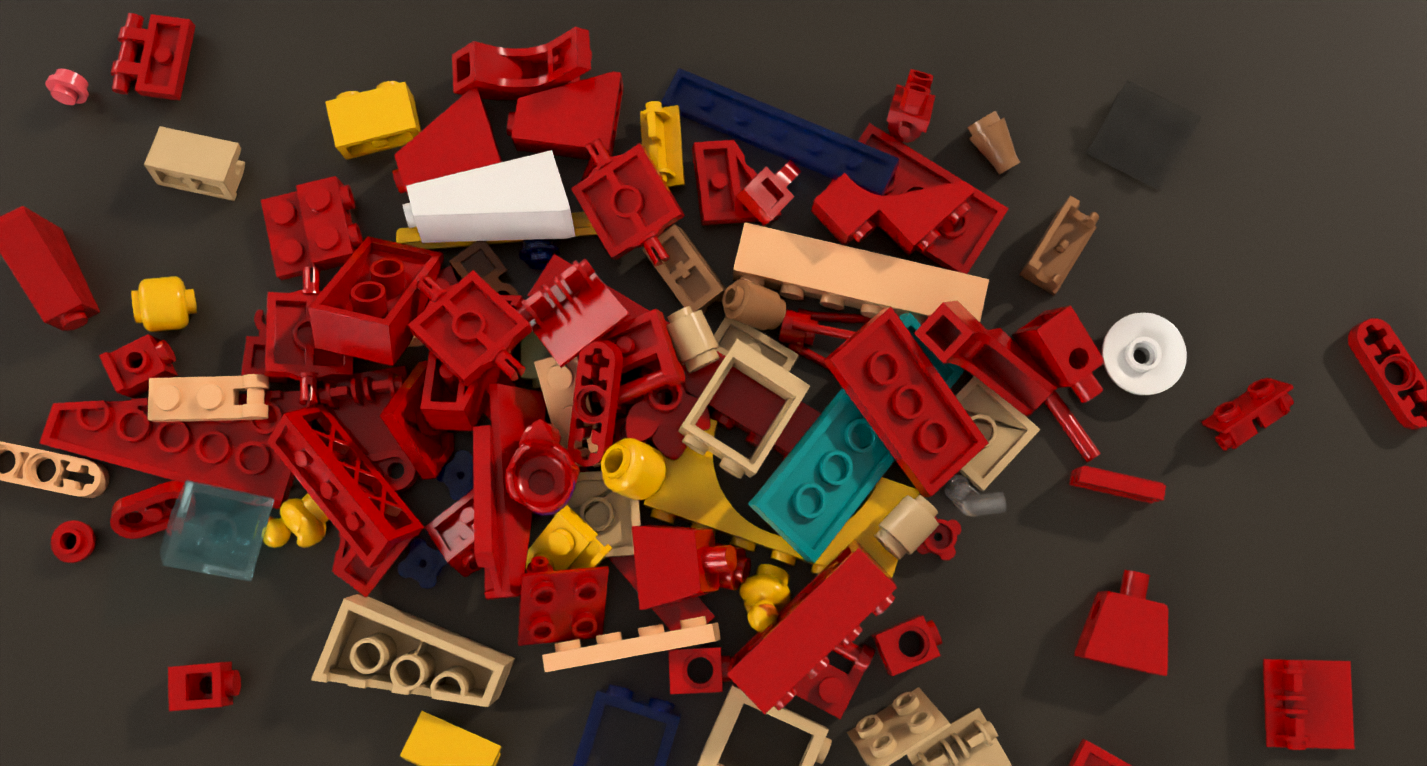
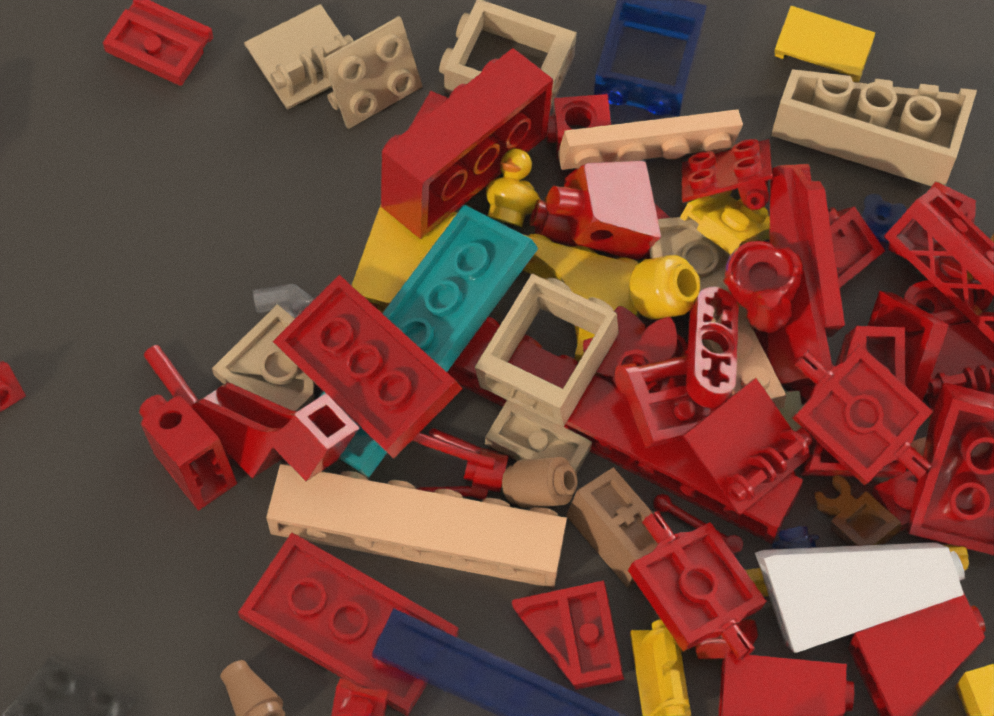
camera: 175 degrees right, 15 degrees down
(448, 475) = (854, 292): clear blue plate -> none
(647, 298) = (664, 504): none -> red hinge
(692, 339) = (609, 426): tan brick -> none
(768, 192) = (530, 613): plate -> none
(888, 644) = (364, 140): red brick -> none
(907, 218) = (359, 582): red arch -> none
(907, 526) = (365, 244): tan brick -> none
(945, 547) = (324, 252): red plate -> none
(1060, 247) = (179, 576): medium nougat hinge -> none
(1117, 484) = (129, 316): red tile -> none
(1127, 628) = (131, 178): red torso -> none
(1160, 343) = (82, 435): white dish -> none

